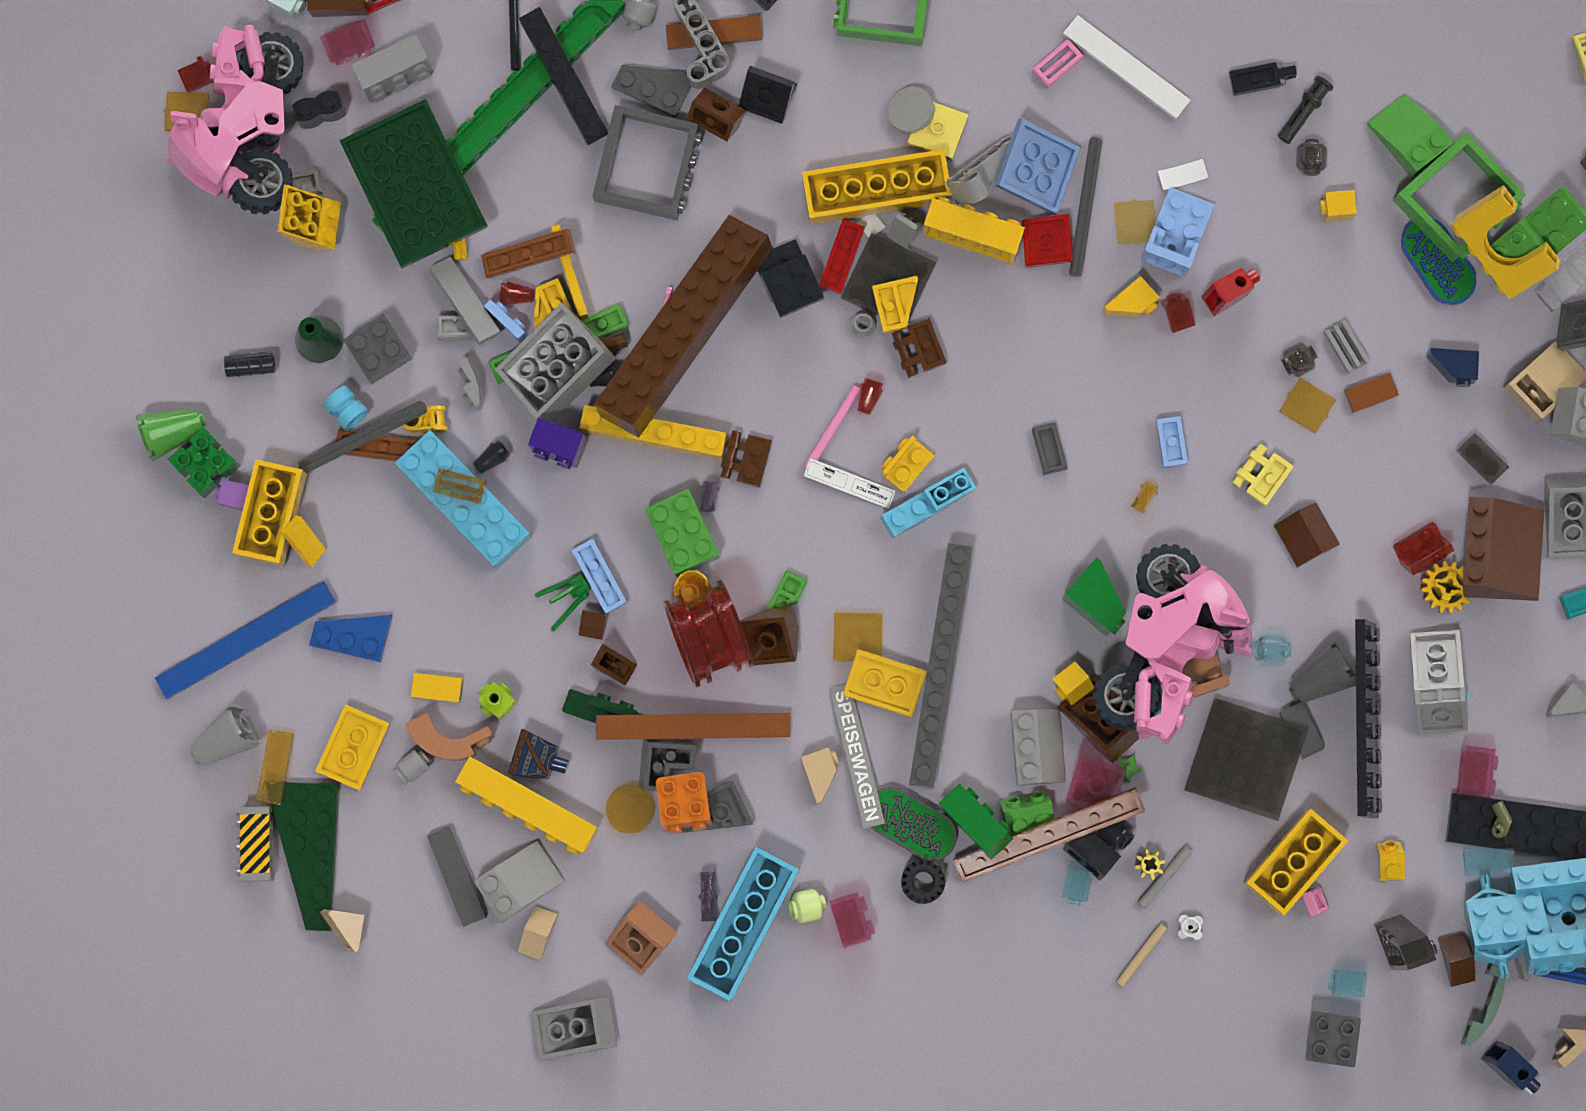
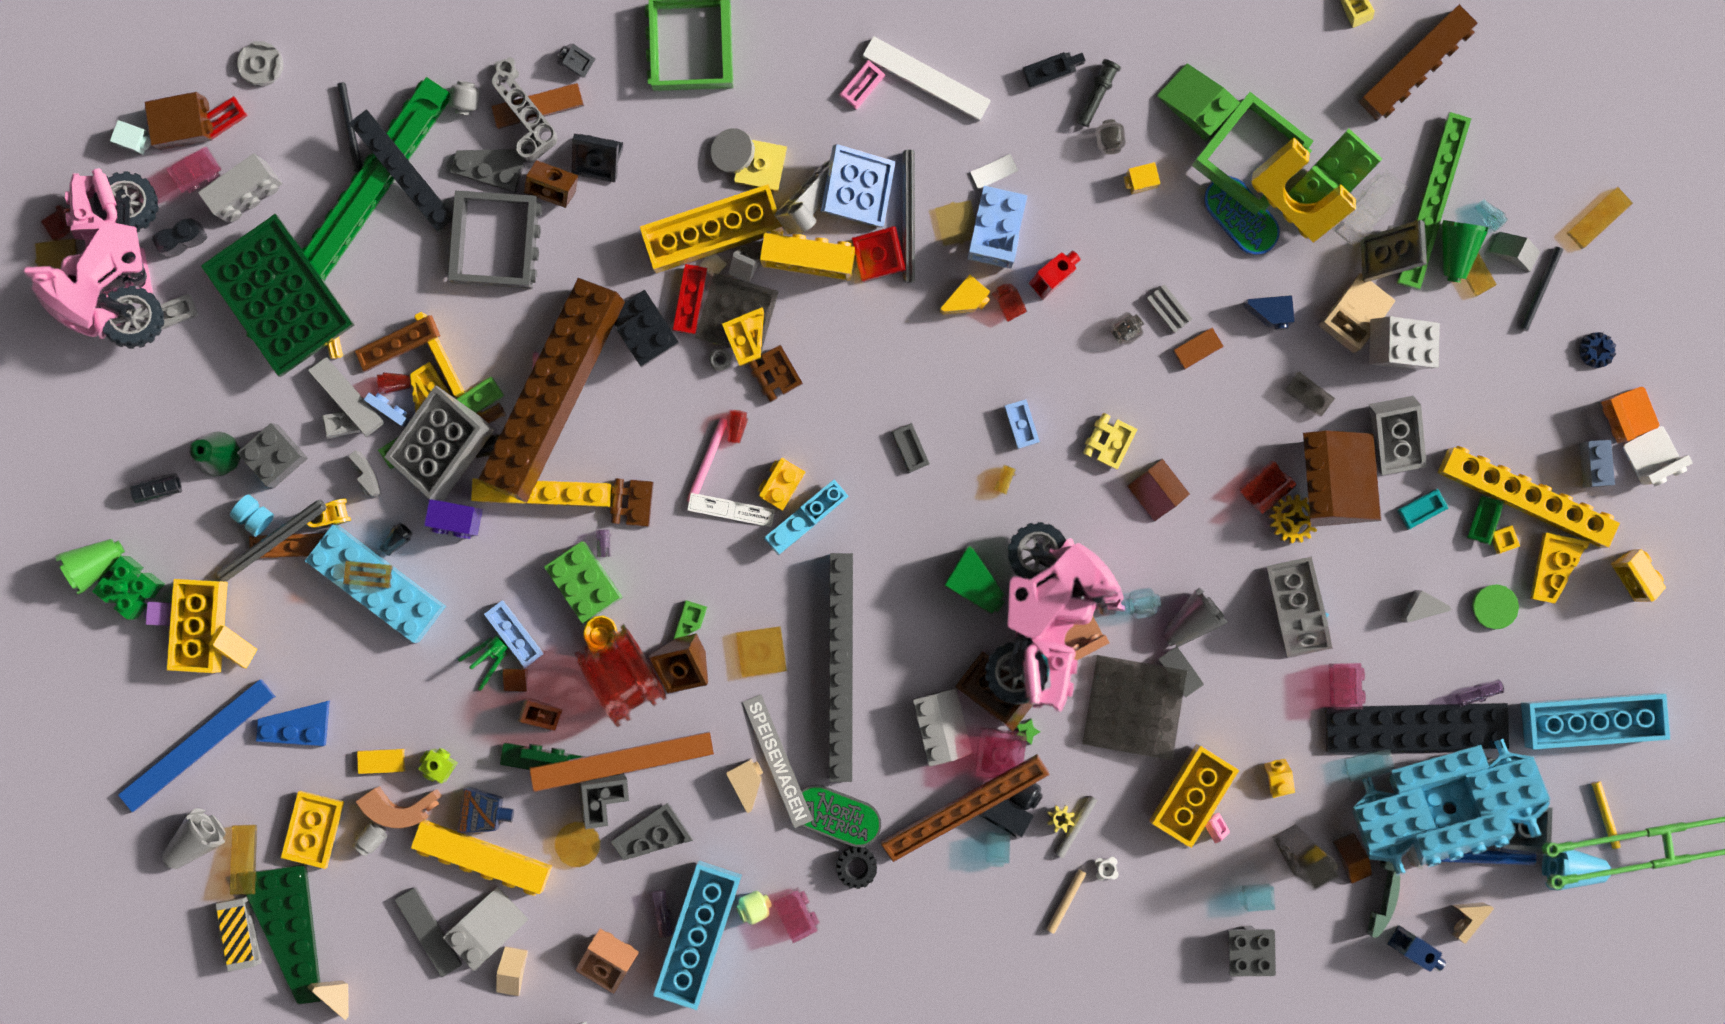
camera: 15 degrees left, 5 degrees up
(308, 219) = (183, 344): yellow slope -> none
(683, 802) = (623, 834): orange bracket -> none
(884, 683) = (792, 690): yellow tile -> none
(976, 820) = (896, 805): green brick -> none
(1027, 811) = (941, 788): bright green bracket -> none
(1072, 684) = (965, 664): yellow brick -> none
(1307, 405) = (1141, 369): clear yellow piece -> none
(1366, 719) = (1241, 662): black plate -> none
(1502, 822) = (1376, 728): olive arm -> none

